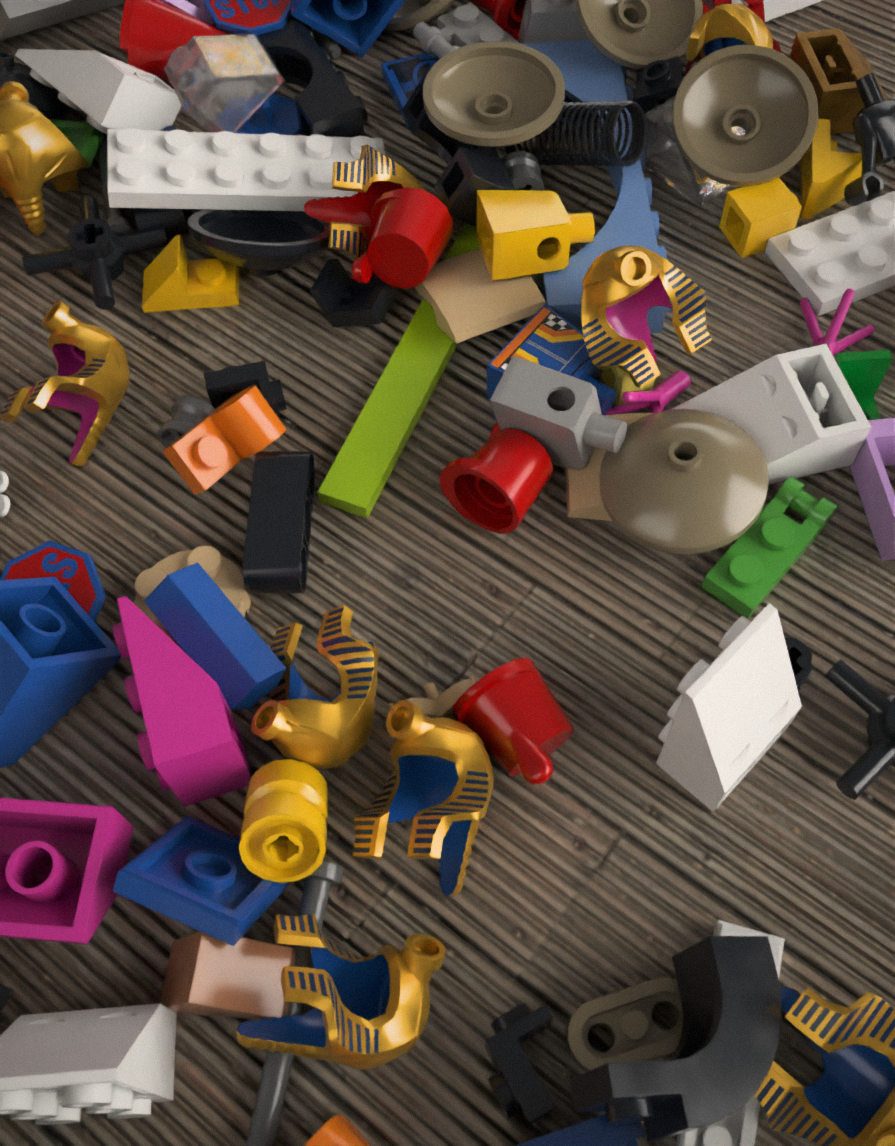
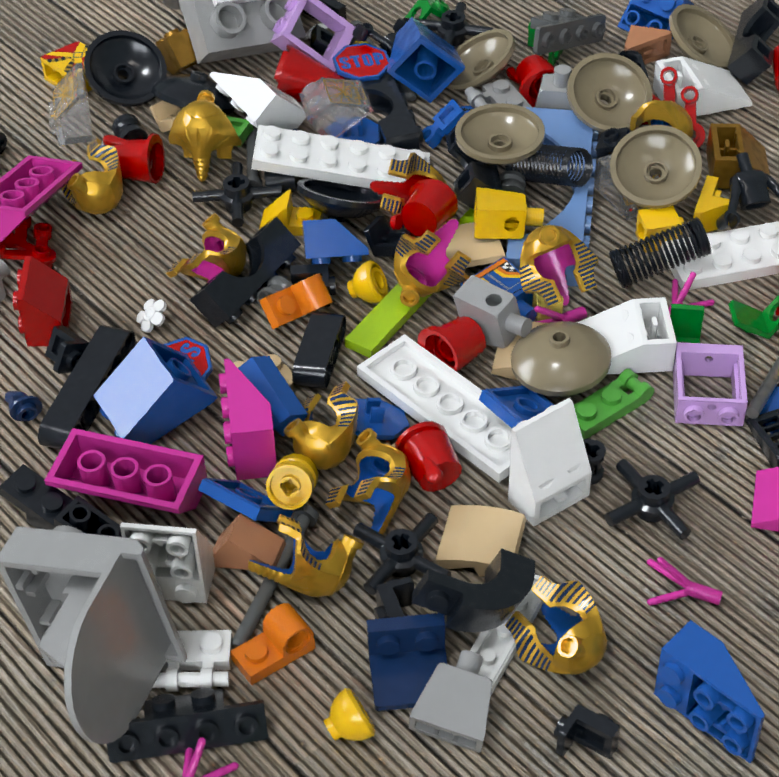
camera: 10 degrees right, 15 degrees down
(103, 445) = (225, 294): none -> black arch
(261, 319) = (330, 239): none -> blue slope
(336, 382) = (368, 283): none -> yellow brick
(396, 86) = (444, 122): none -> blue plate
(409, 641) = (382, 417): none -> blue piece
(424, 344) = (424, 266): none -> piece
(504, 960) = (399, 551): none -> black bar
(525, 600) = (437, 393): none -> white plate
(639, 870) = (477, 534): none -> tan slope
(649, 592) = (514, 403): none -> blue tile
(726, 294) = (698, 239): none -> black piece

